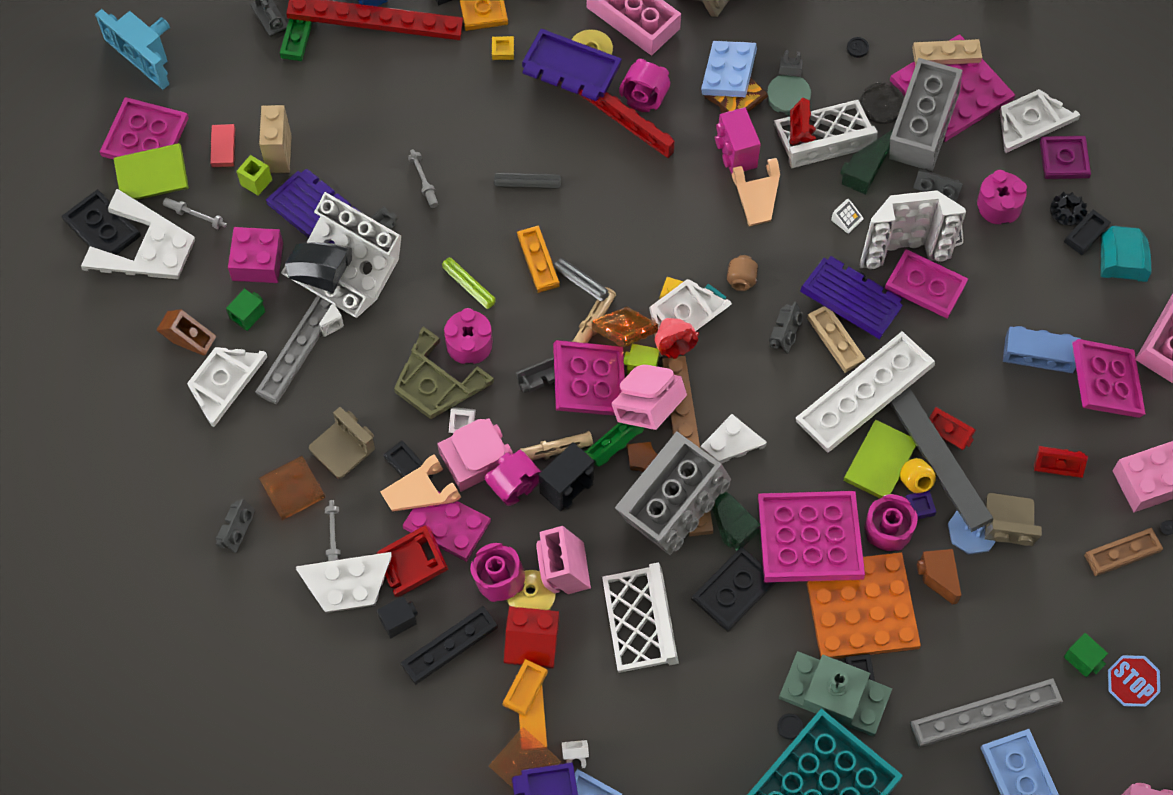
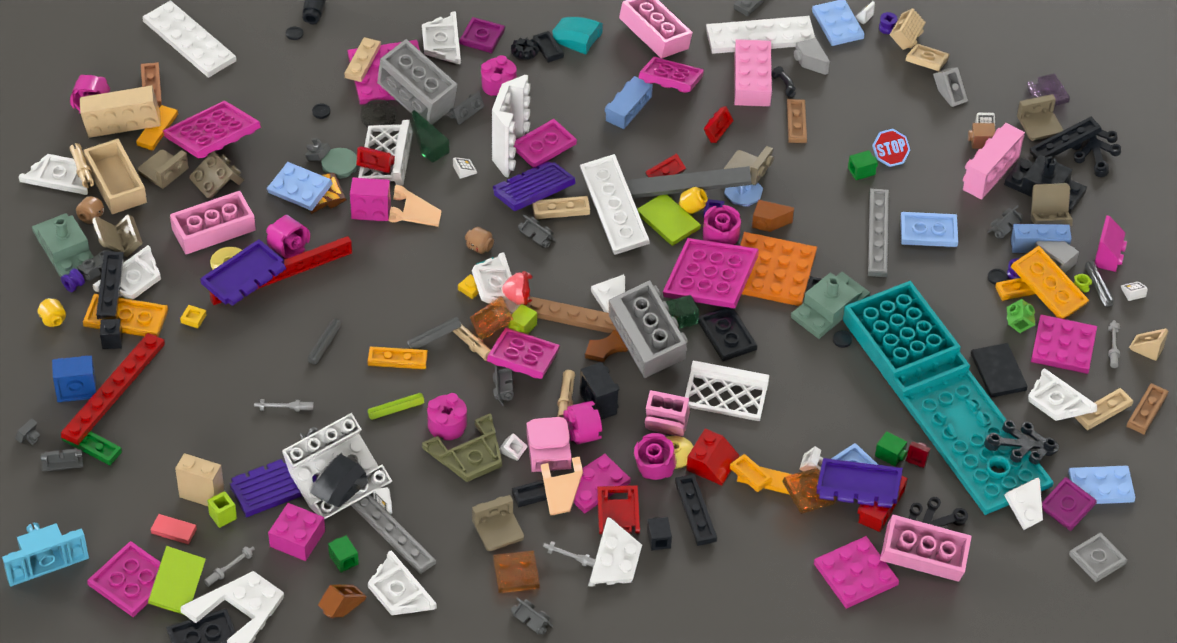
camera: 70 degrees left, 15 degrees down
(612, 442) = (575, 352): green plate -> none
(648, 396) = (560, 320): bright pink brick -> none

